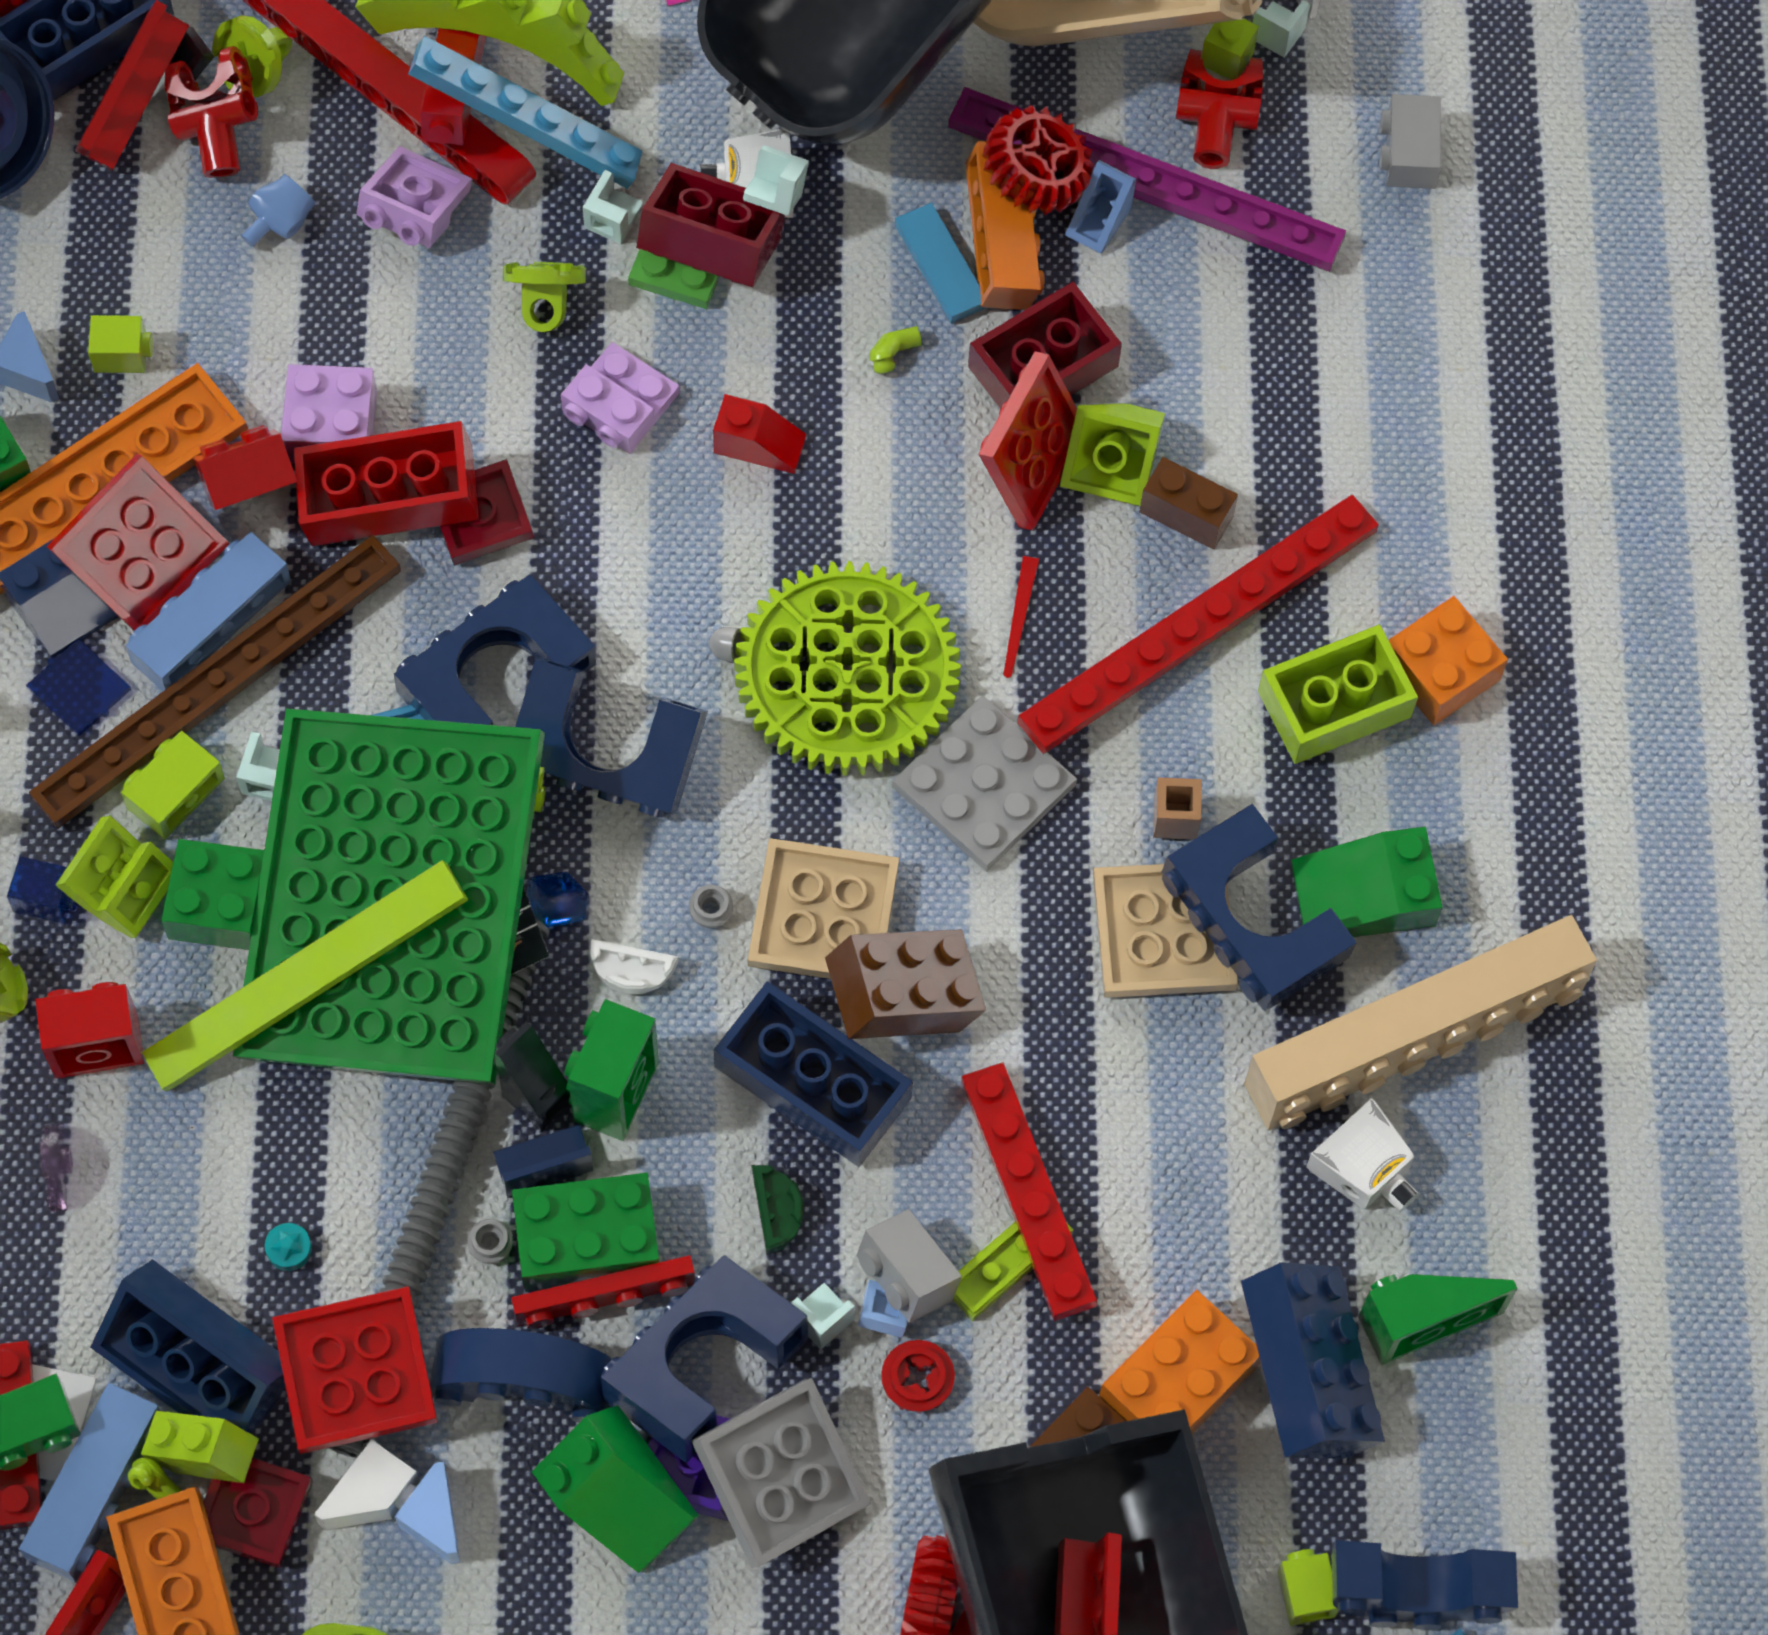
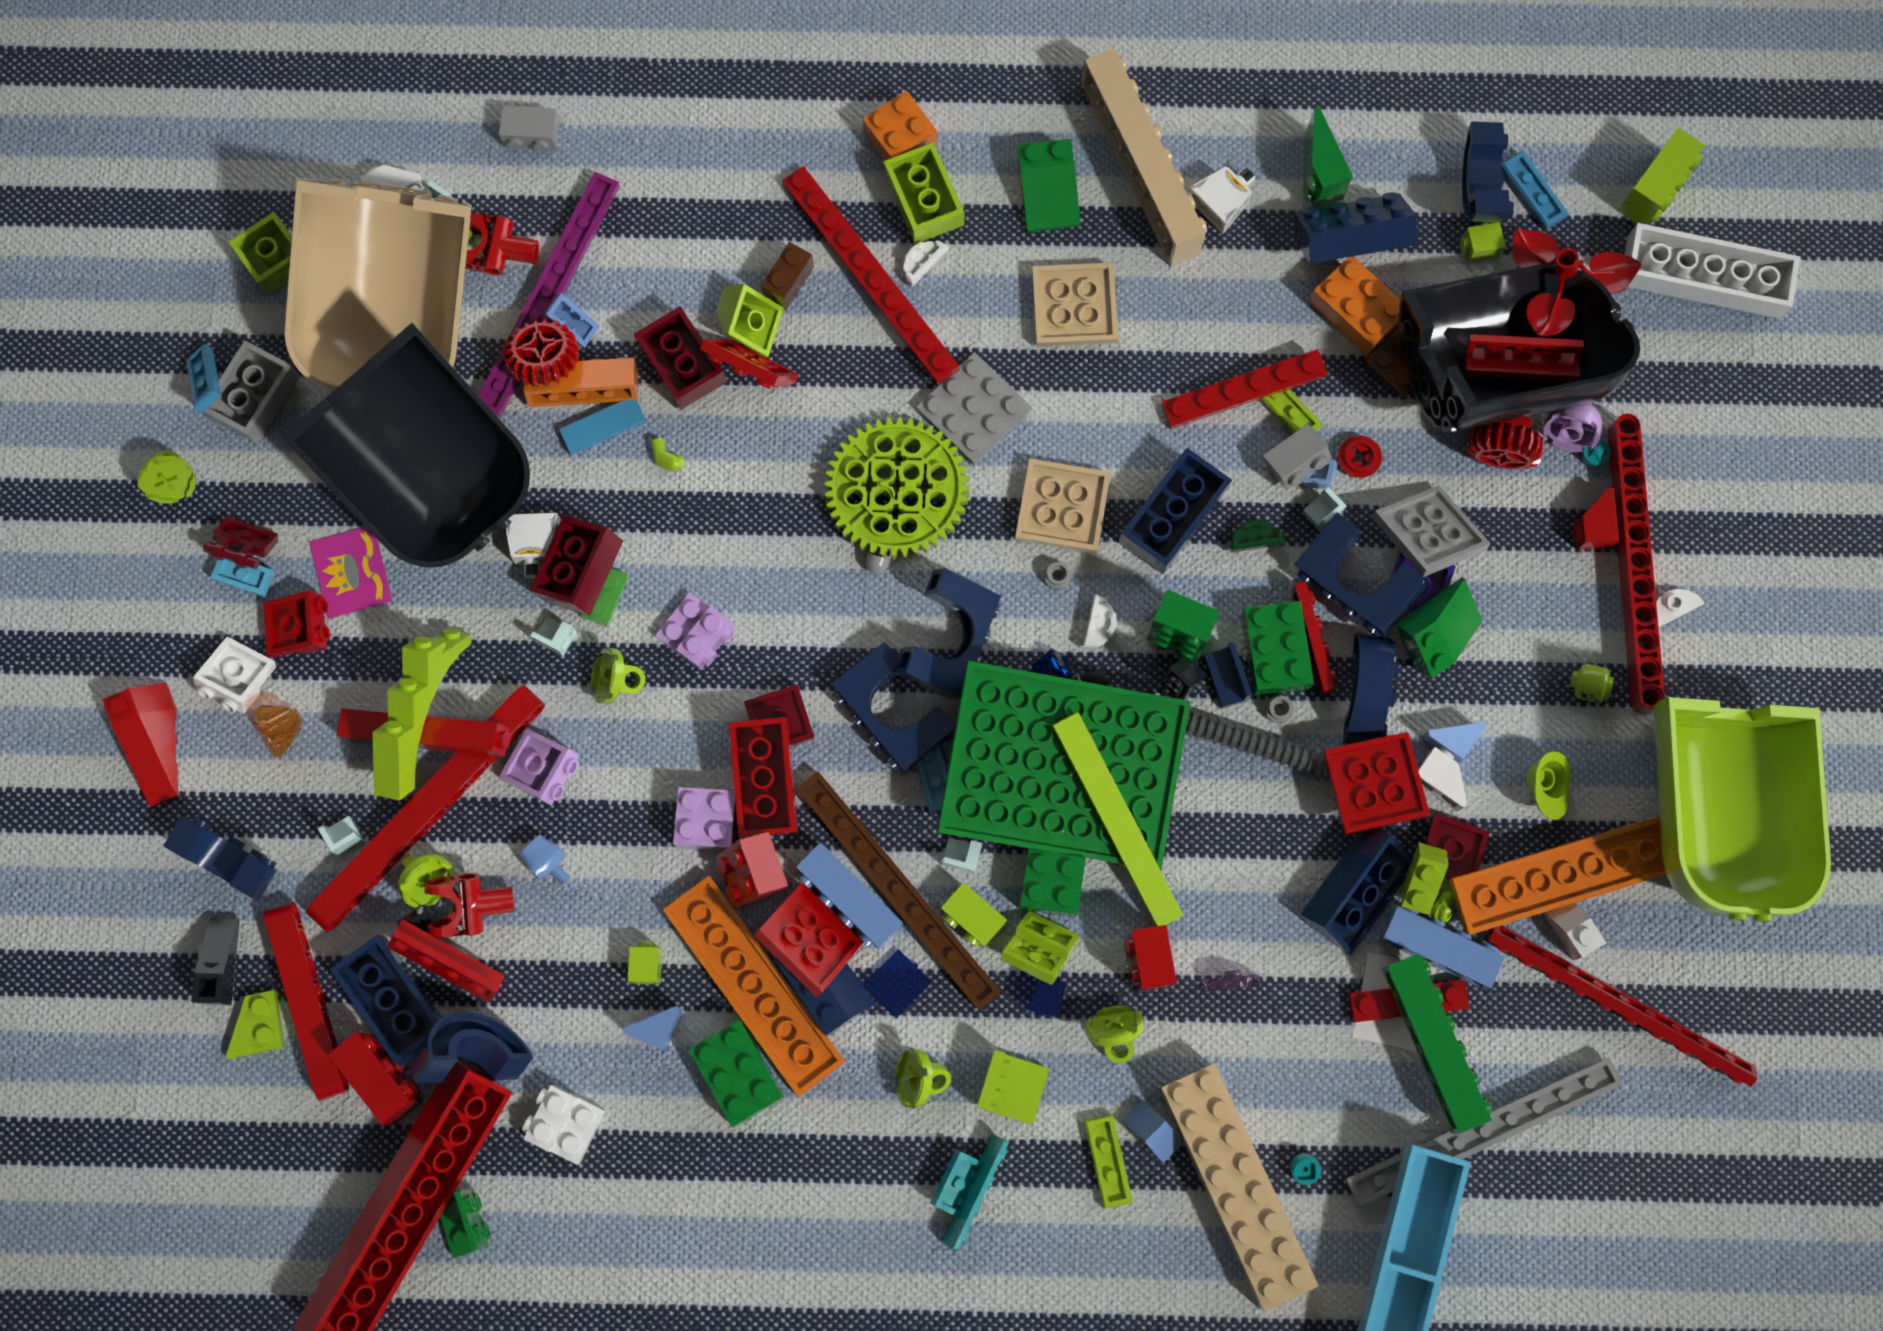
camera: 85 degrees left, 10 degrees up
(288, 1247) = (1284, 833): teal tile -> none
(524, 111) = (488, 686): dark azure plate -> none
(757, 435) = (729, 542): red slope -> none
(777, 180) = (551, 519): light aqua panel -> none
(905, 983) = (1121, 451): brick -> none
(1025, 584) = (843, 381): red sticker -> none
(1177, 808) = (999, 290): medium nougat brick -> none
(1230, 699) = (921, 259): none -> white plate
(1266, 965) = (1050, 274): dark blue arch -> none

